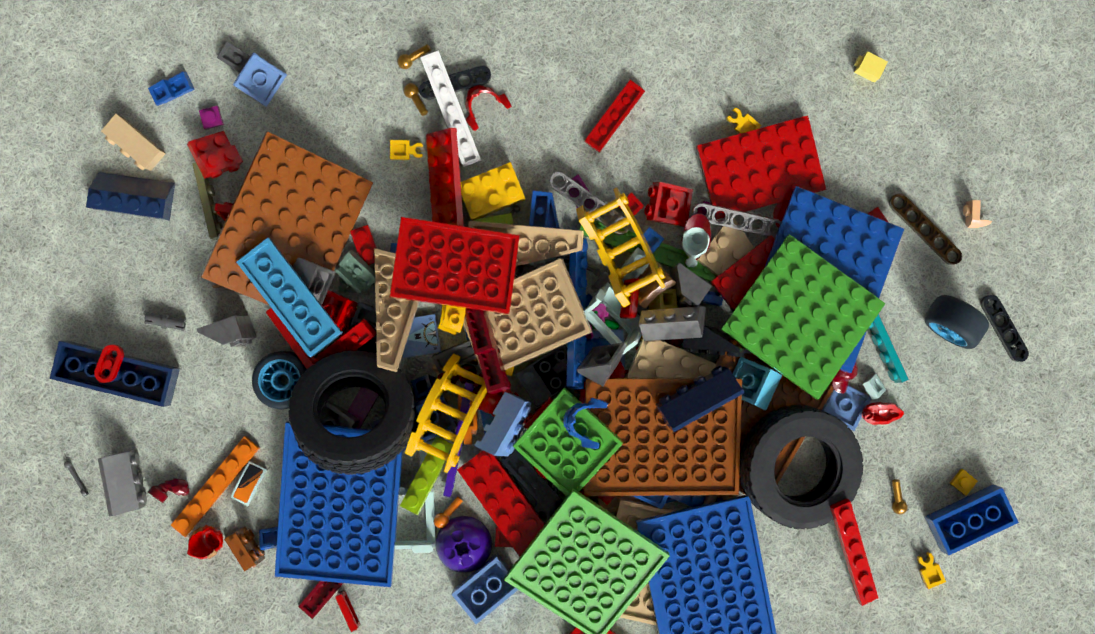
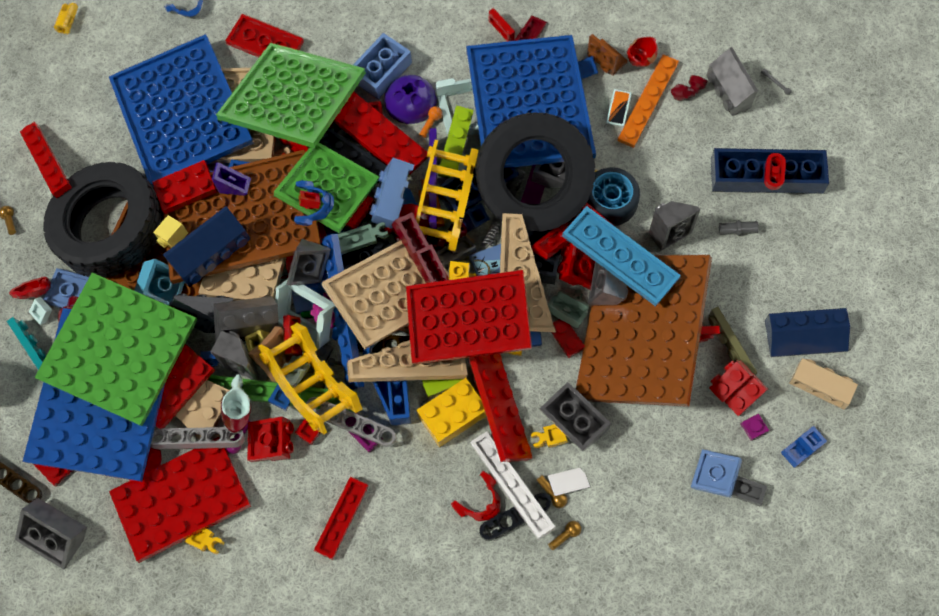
camera: 170 degrees right, 20 degrees down
(376, 158) = (575, 417): none -> flat silver slope
(398, 104) = (568, 481): none -> white sticker
(545, 384) = (361, 237): none -> sand green plate
(588, 424) = (309, 199): none -> red plate
(665, 473) = (230, 181): none -> dark purple slope
(713, 482) = (184, 187): none -> red plate
(735, 429) = (170, 232): none -> light yellow brick
(884, 161) = (49, 532): none -> flat silver slope

